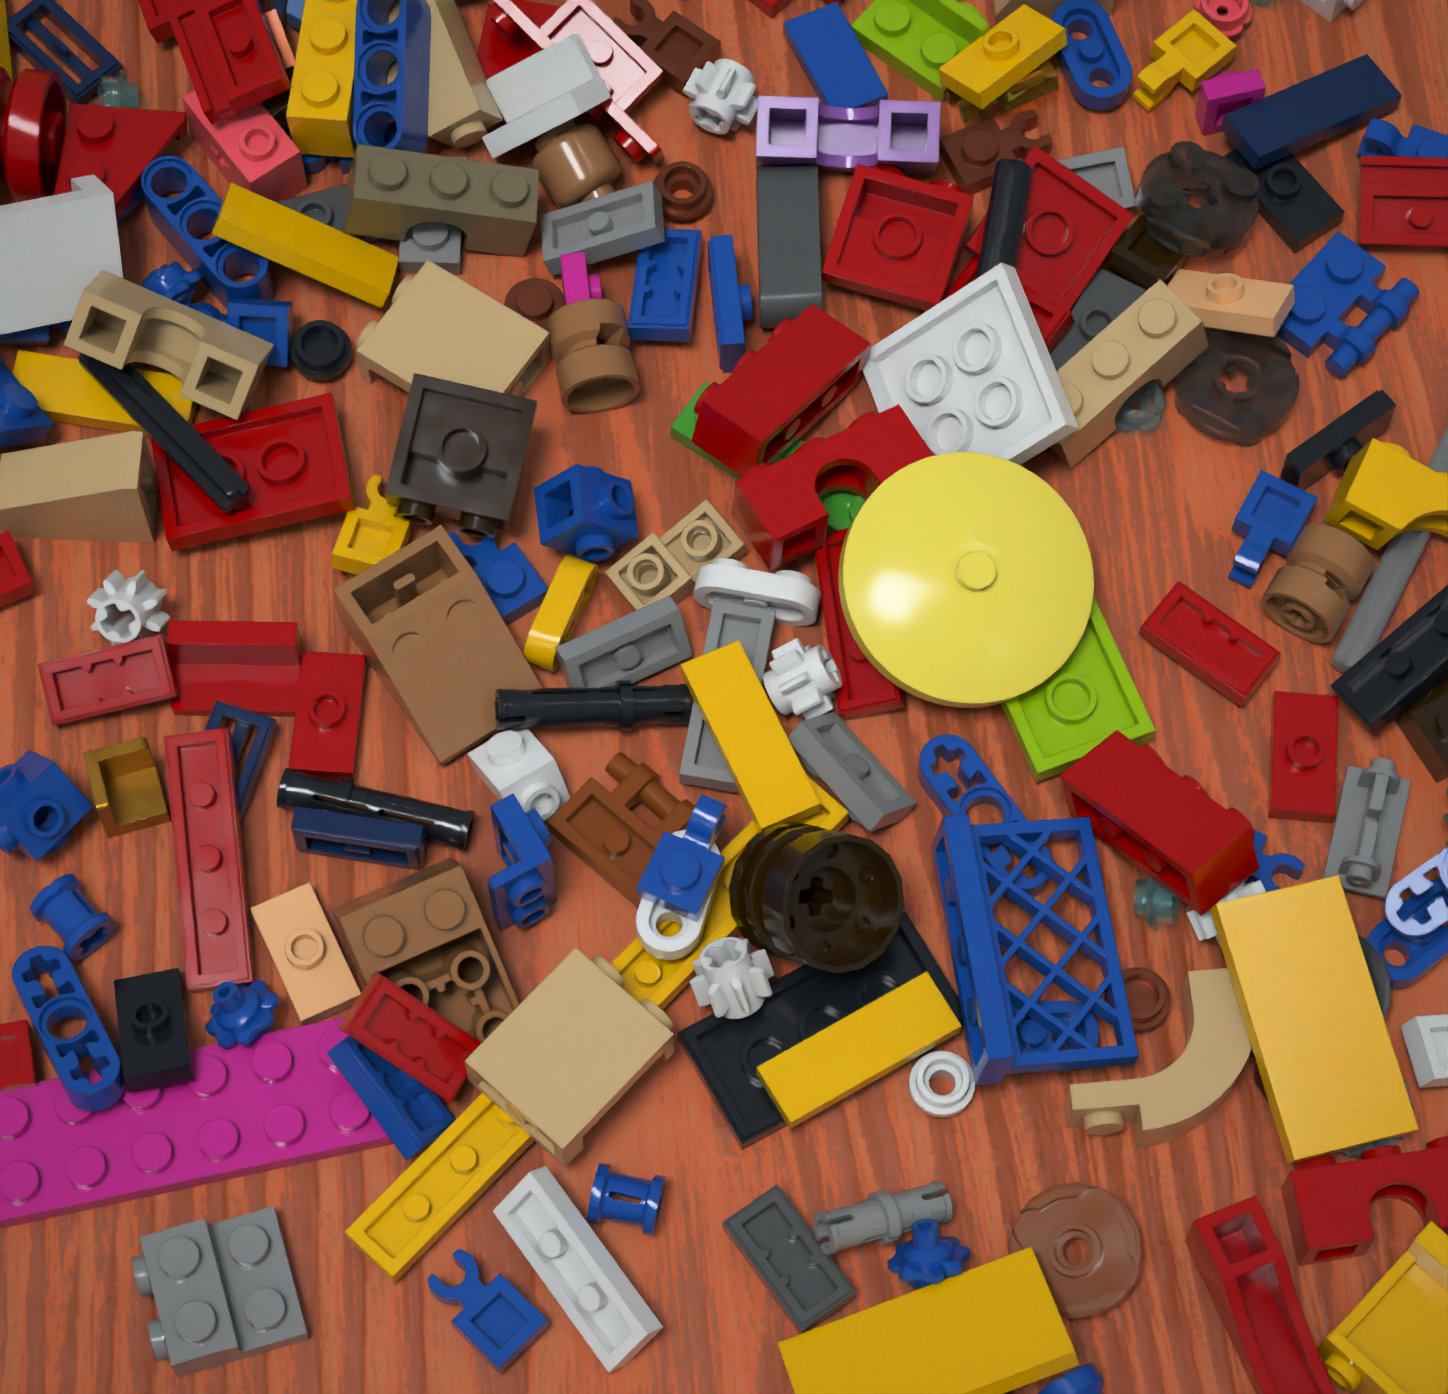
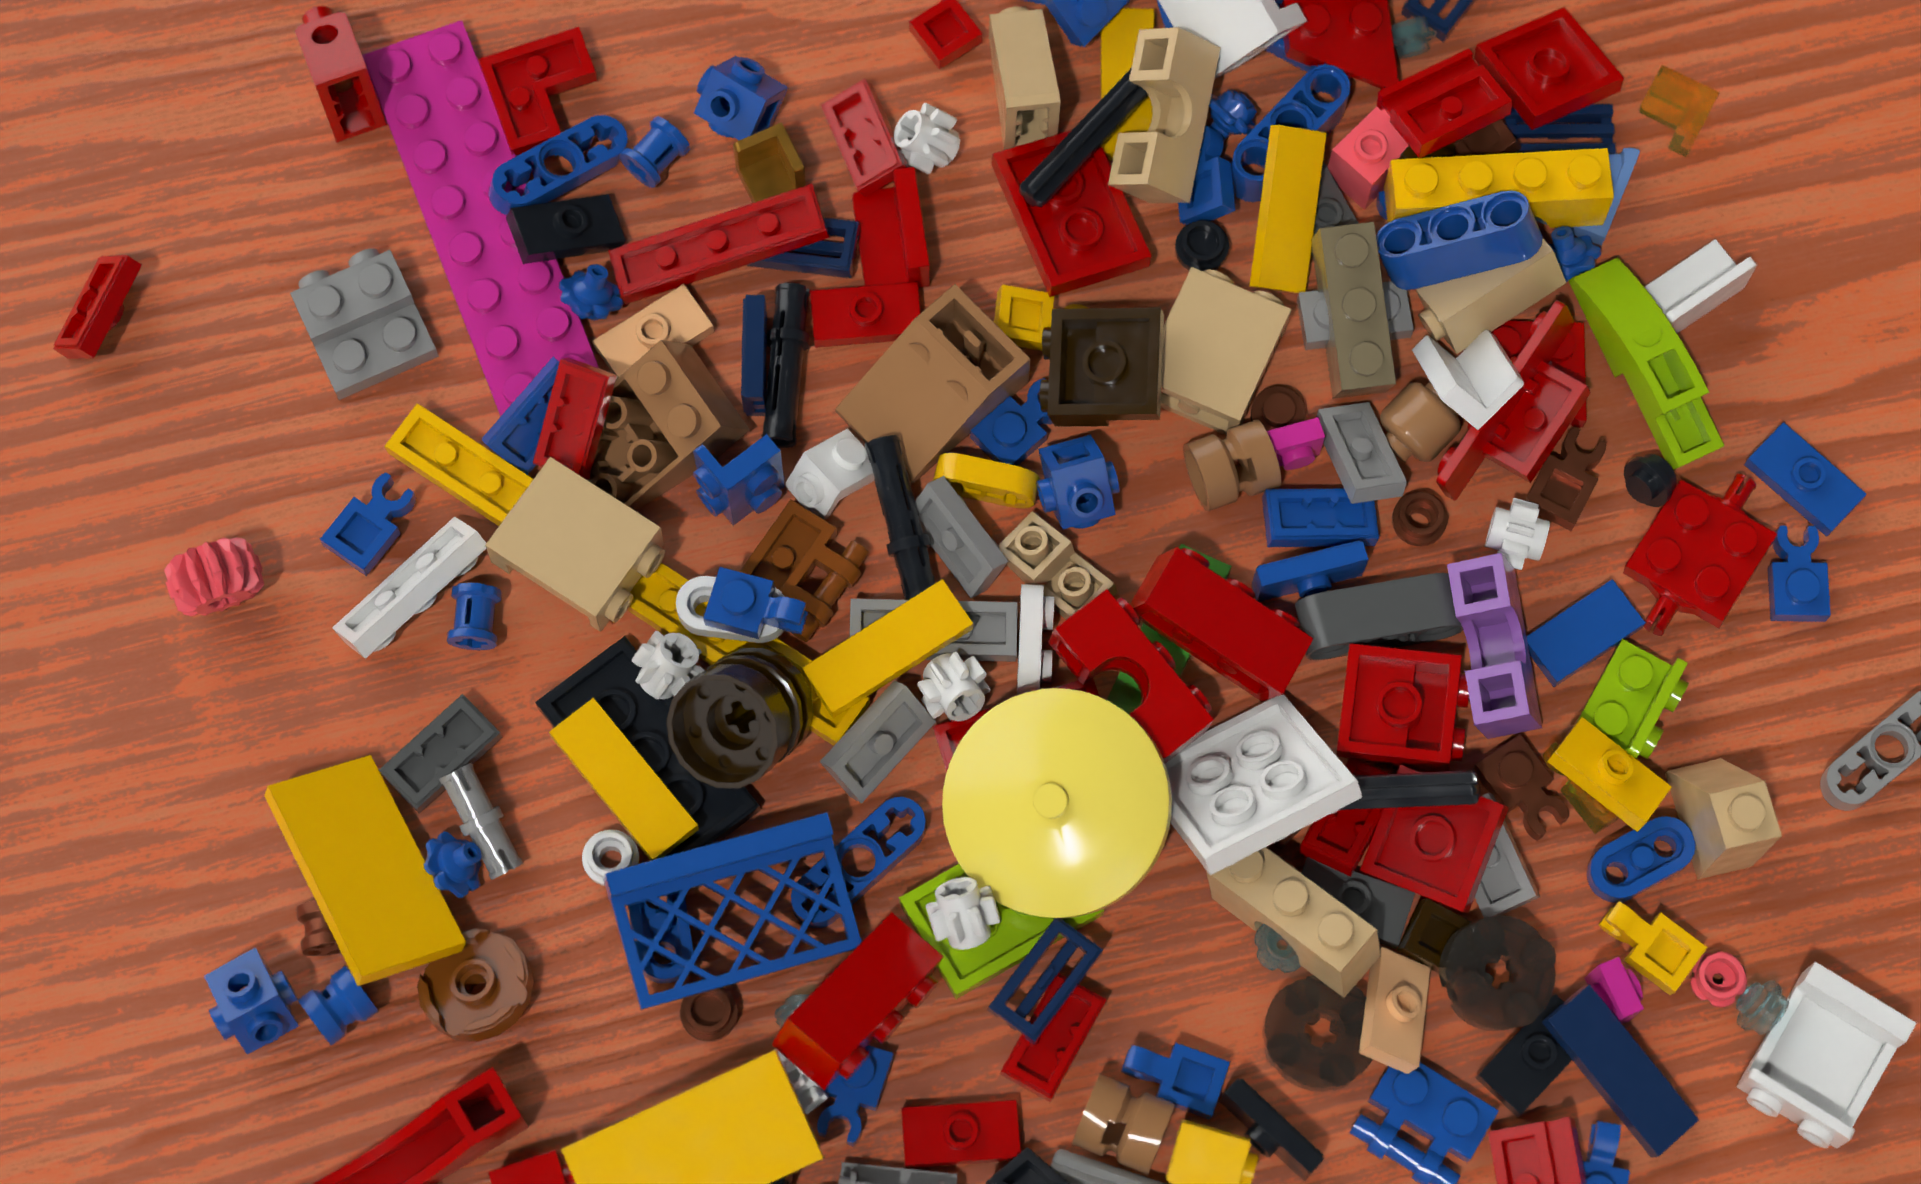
camera: 80 degrees right, 5 degrees up
(1075, 696) = (963, 913): none -> white gear
(1137, 649) = (1016, 1019): none -> dark blue tile
(1188, 1089) = (627, 1062): tan arch -> none

